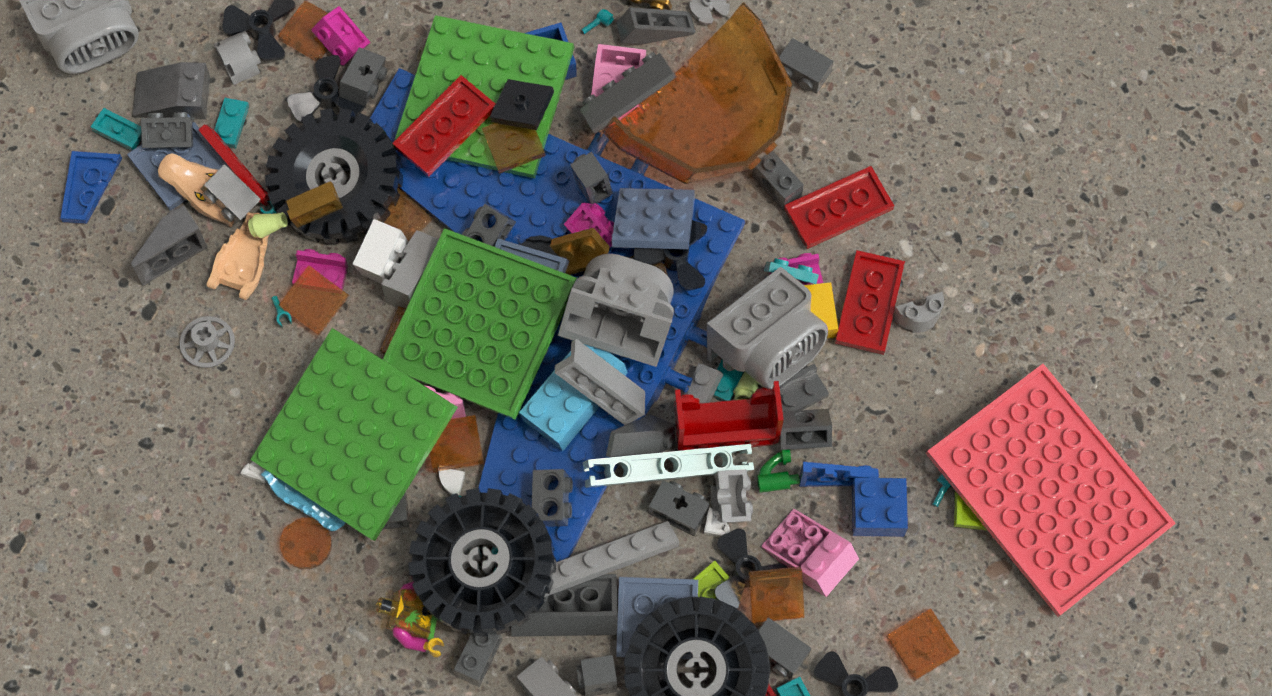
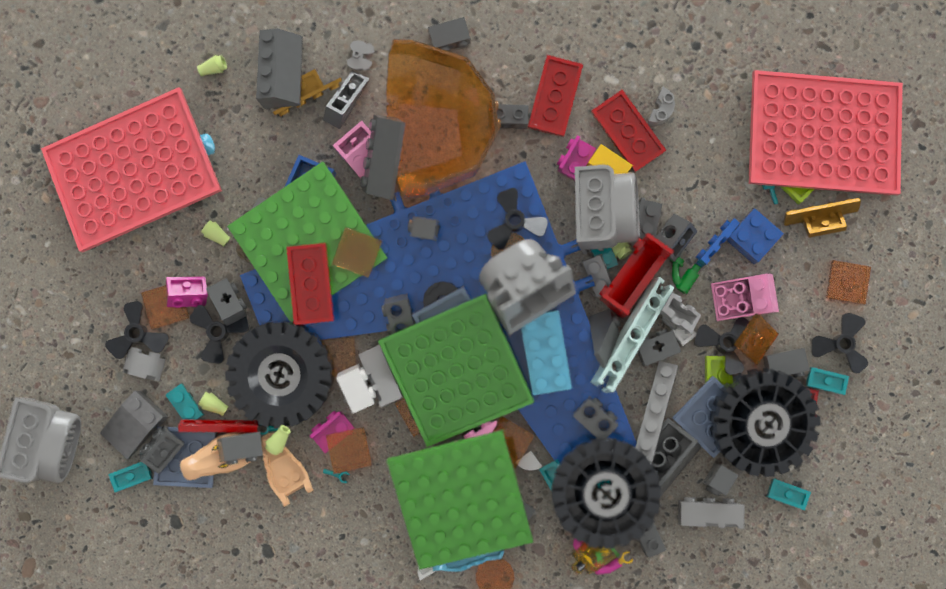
camera: 45 degrees left, 15 degrees up
(86, 182) = (151, 524): blue wing -> none
(169, 245) = (238, 504): flat silver slope -> none
(206, 339) = (317, 533): light grey wheel -> none
(252, 144) = (213, 404): none -> yellowish green cone
(313, 204) = (291, 403): pearl gold panel -> none
(420, 17) = (215, 233): none -> yellowish green cone
(522, 104) = (339, 227): black plate -> none
(579, 249) = (464, 274): pearl gold bracket -> none
(588, 217) = (455, 253): dark pink bracket -> none
(602, 383) = (562, 334): light grey panel -> none
(603, 17) = (311, 123): teal hand -> none
(653, 218) = (482, 214): sand blue plate -> none
(802, 273) = (582, 157): teal plate -> none
(963, 560) = (823, 218): none -> pearl gold bracket

